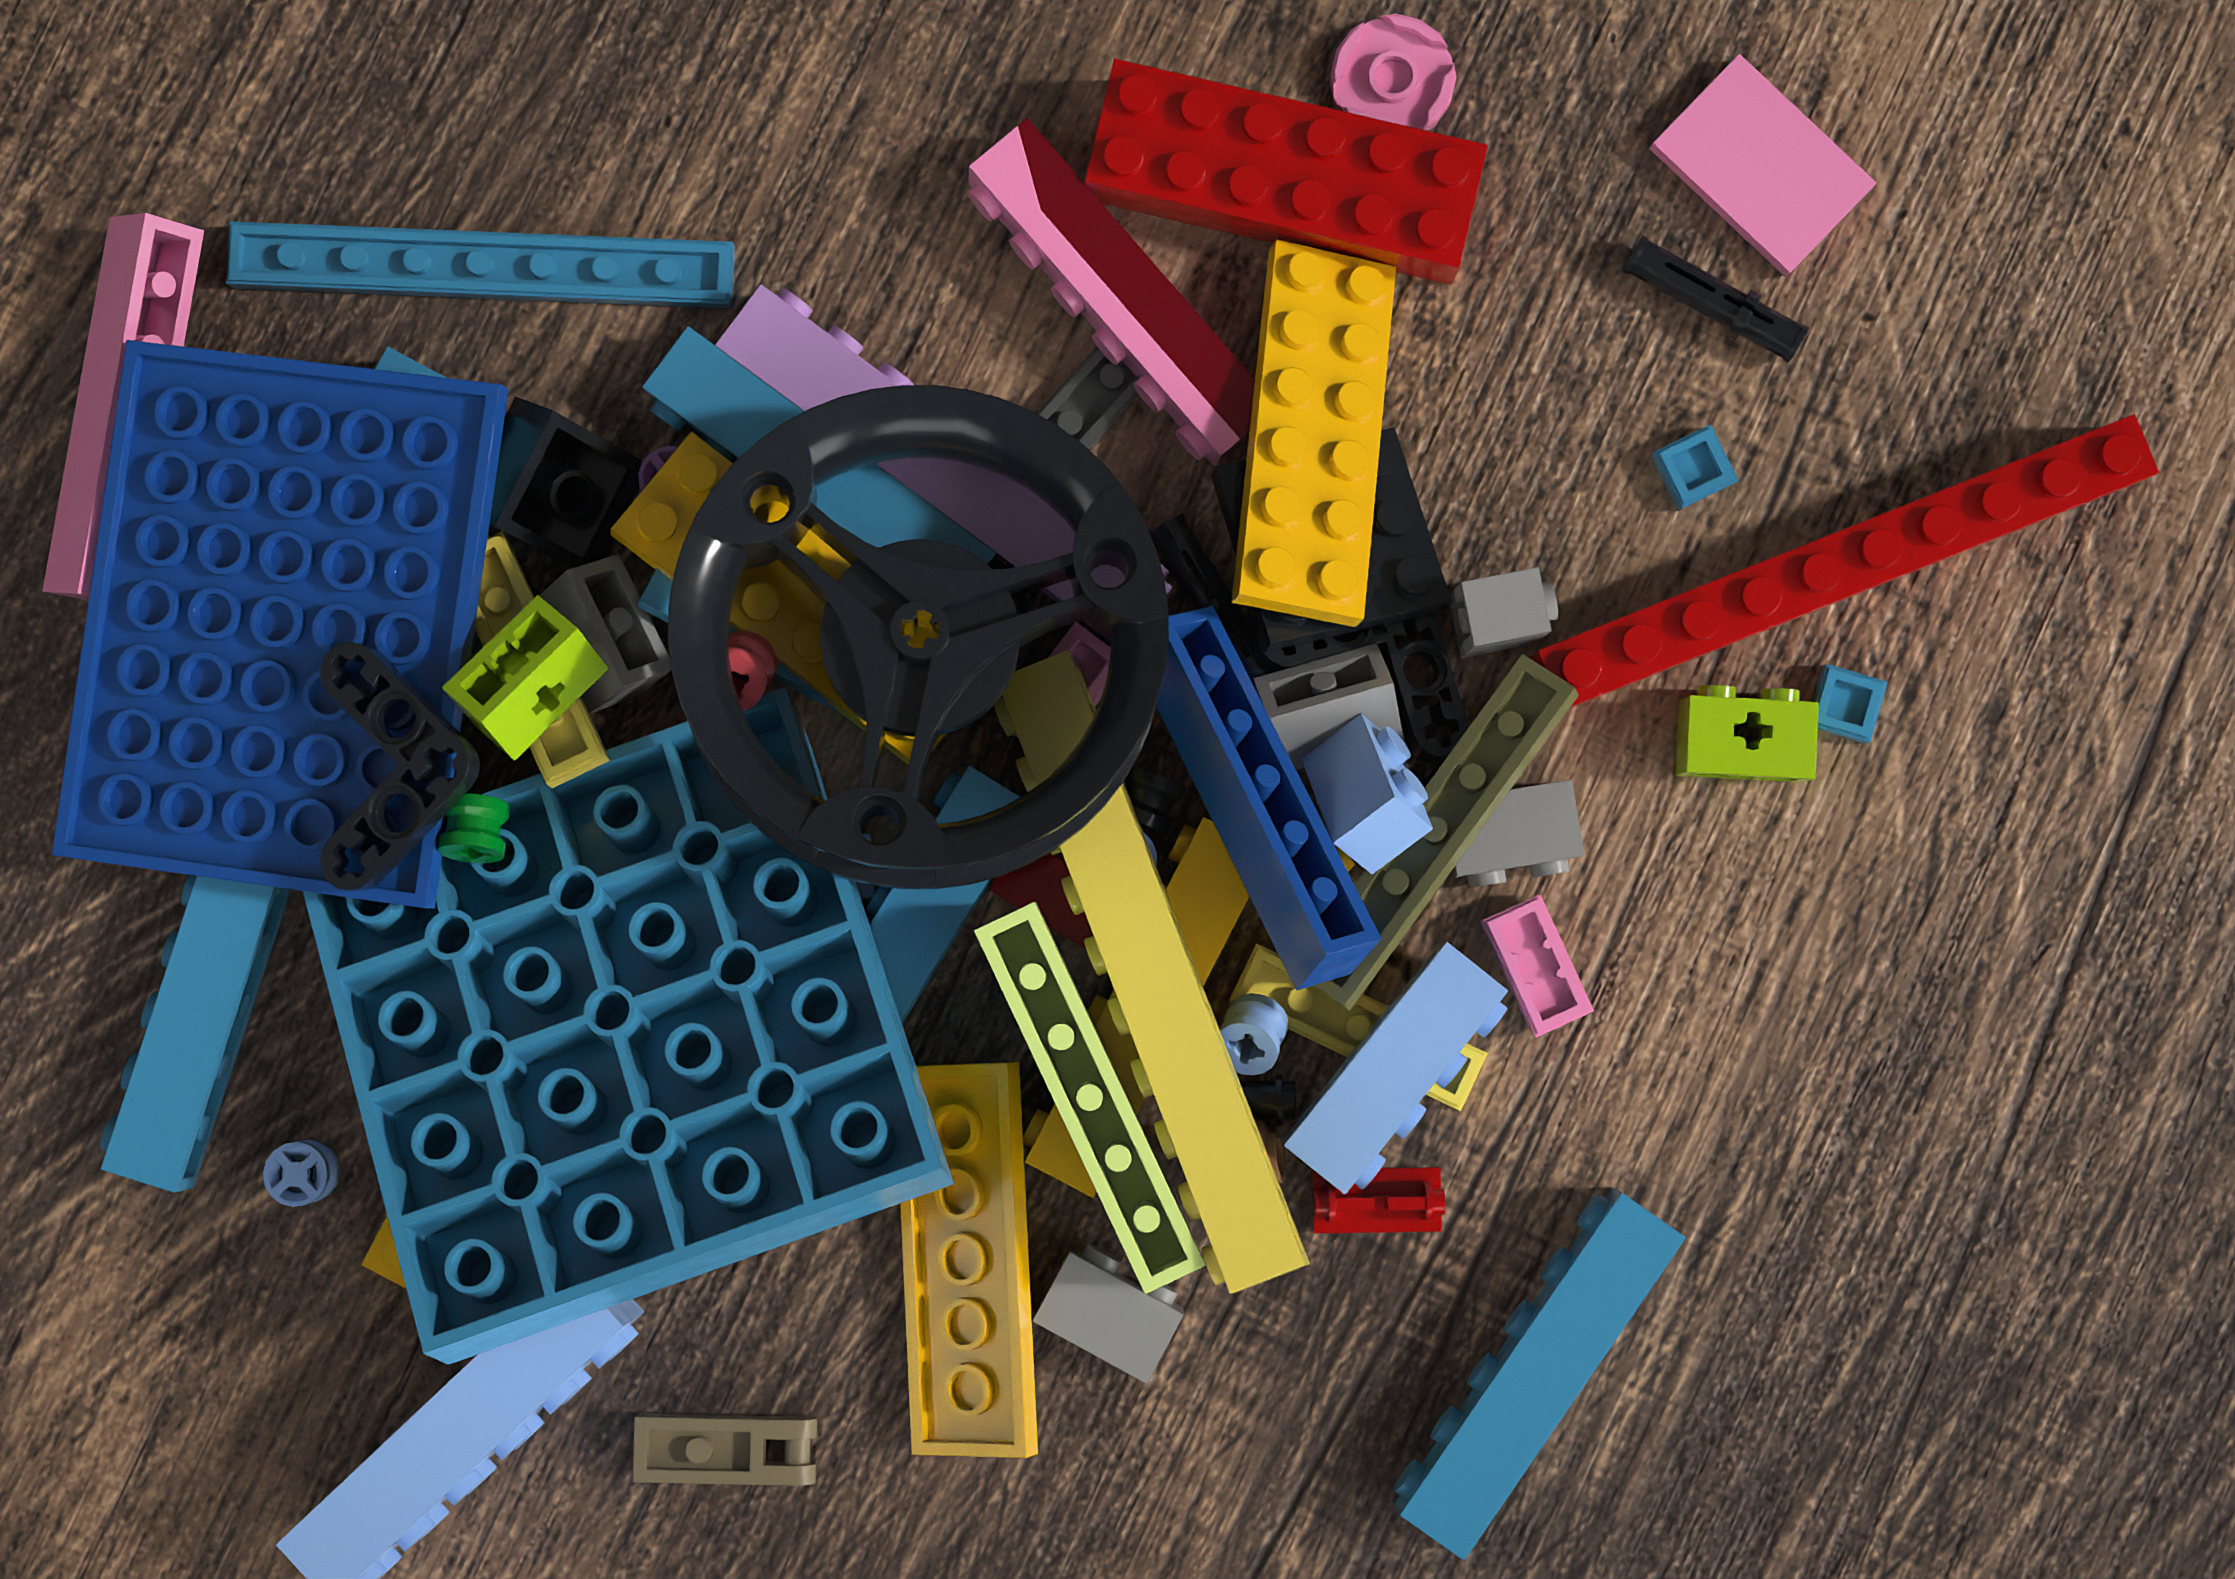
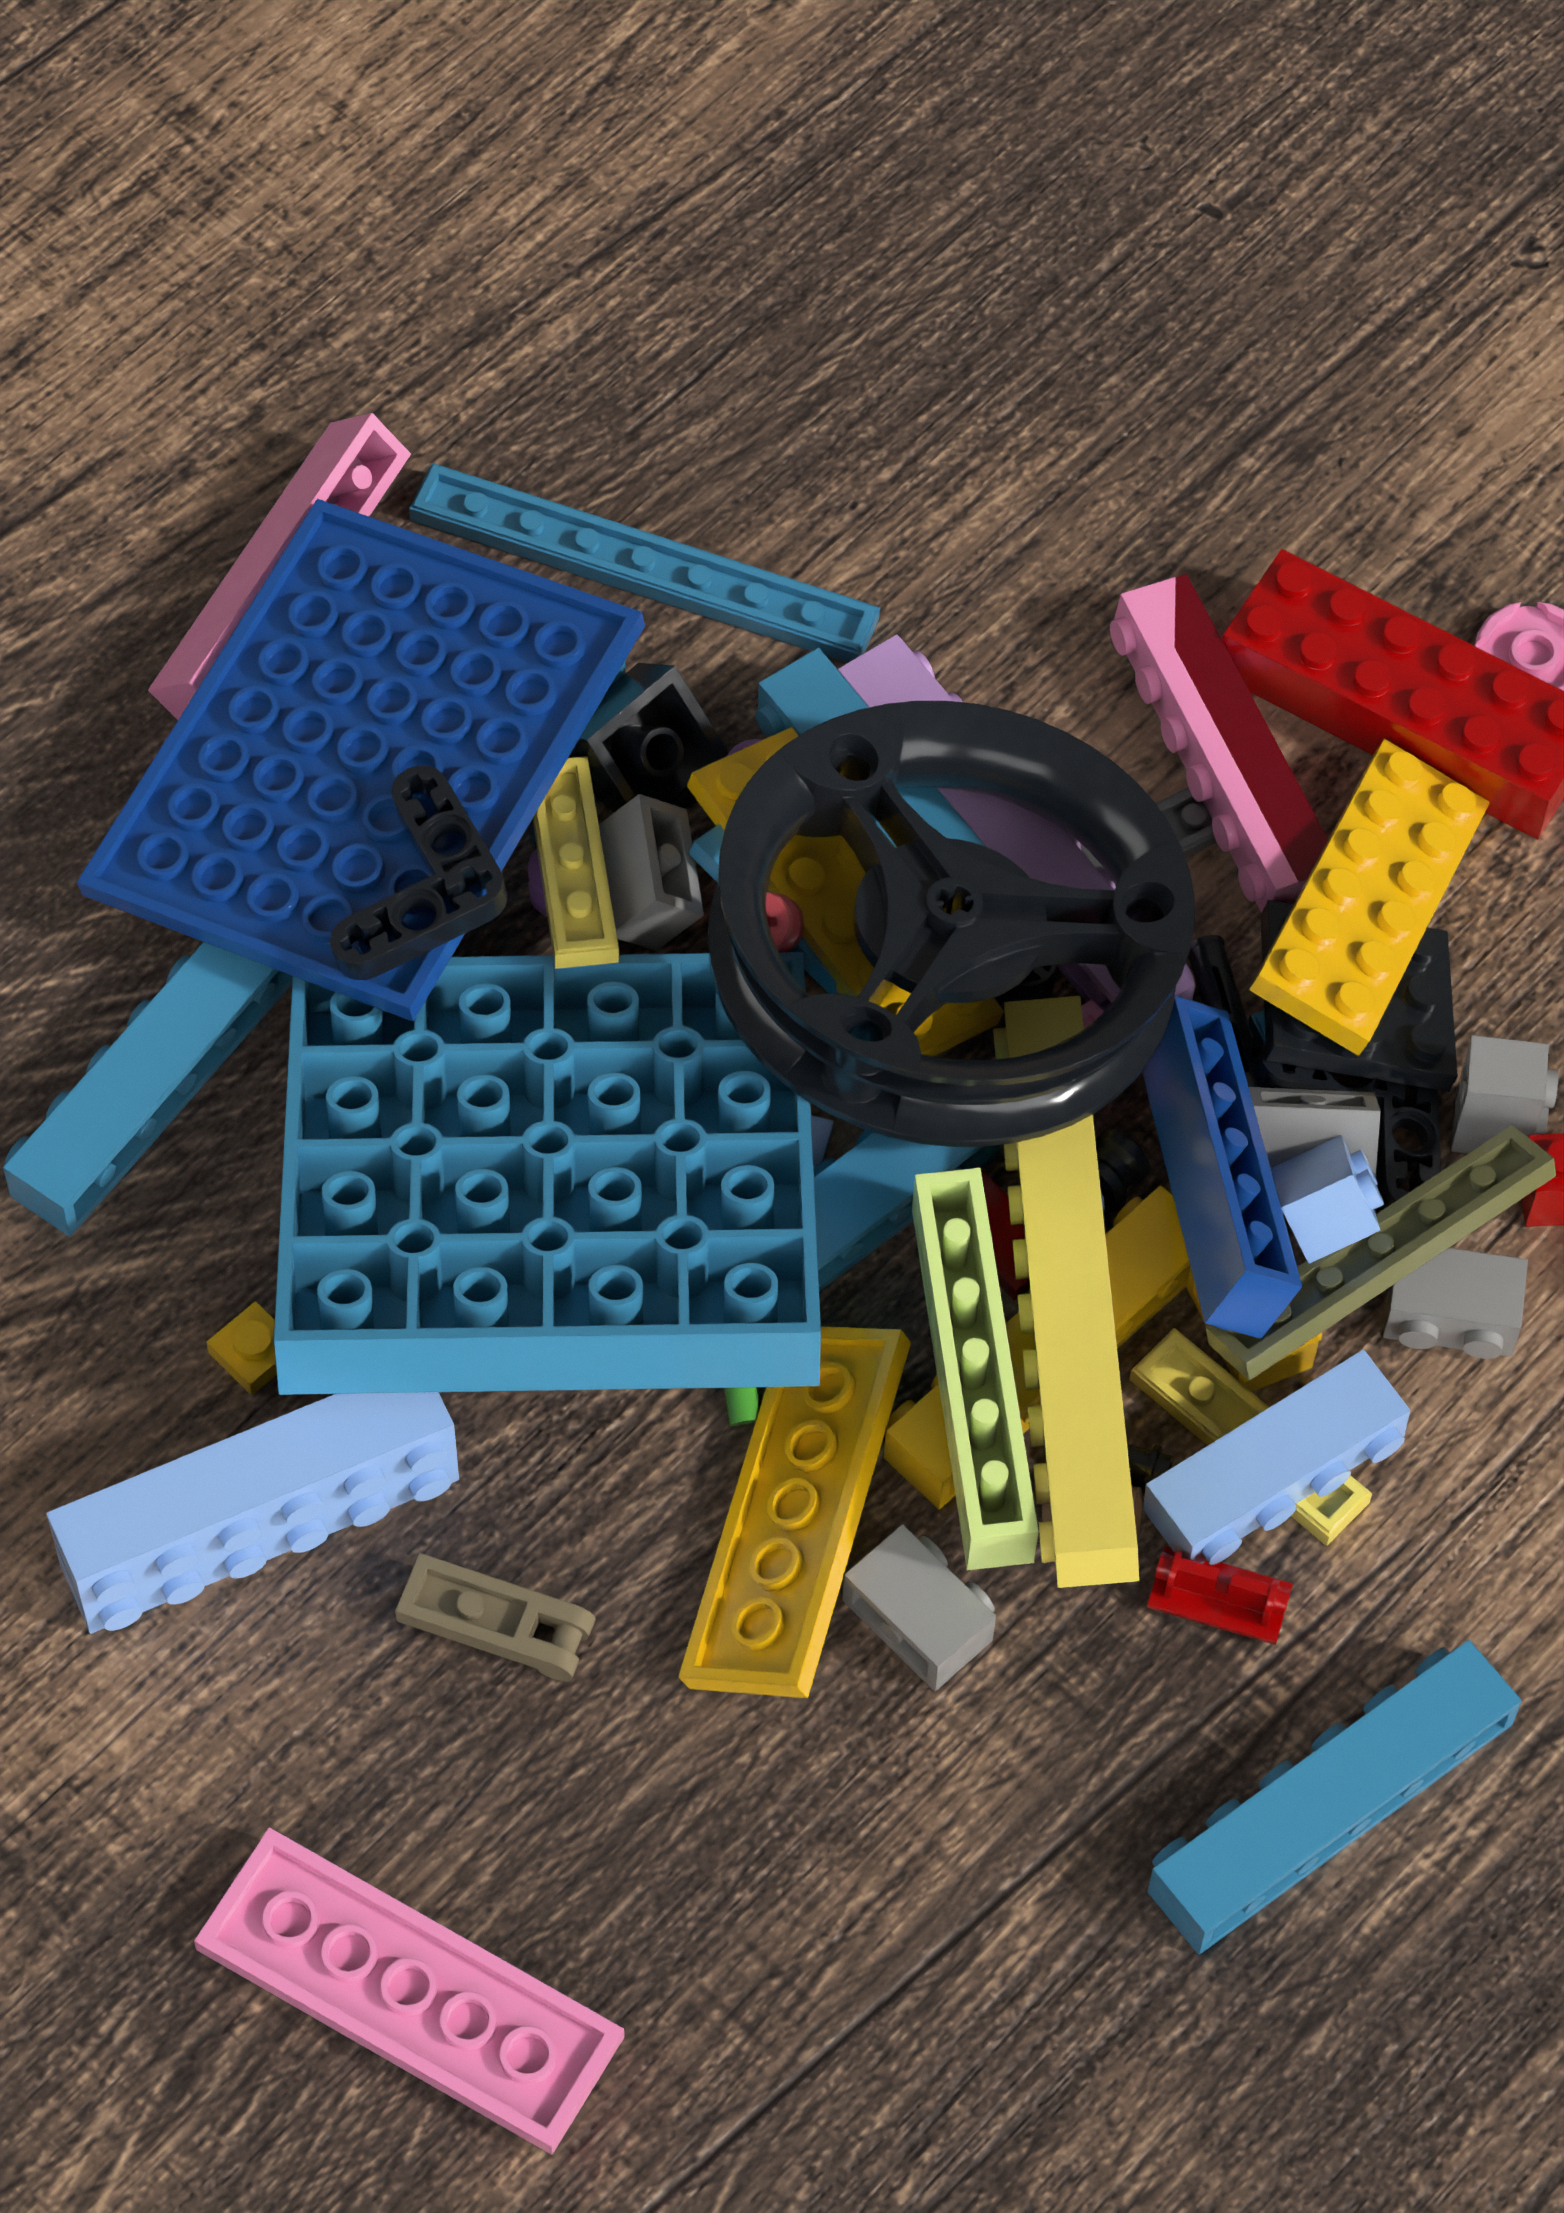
camera: 15 degrees right, 25 degrees down
(289, 1179) = (182, 1229): light blue wheel -> none
(475, 829) = (476, 966): green wheel -> none
(525, 677) = (575, 849): lime brick -> none
(1266, 1029) = (1158, 1393): light blue wheel -> none
(1536, 966) = (1445, 1430): bright pink plate -> none

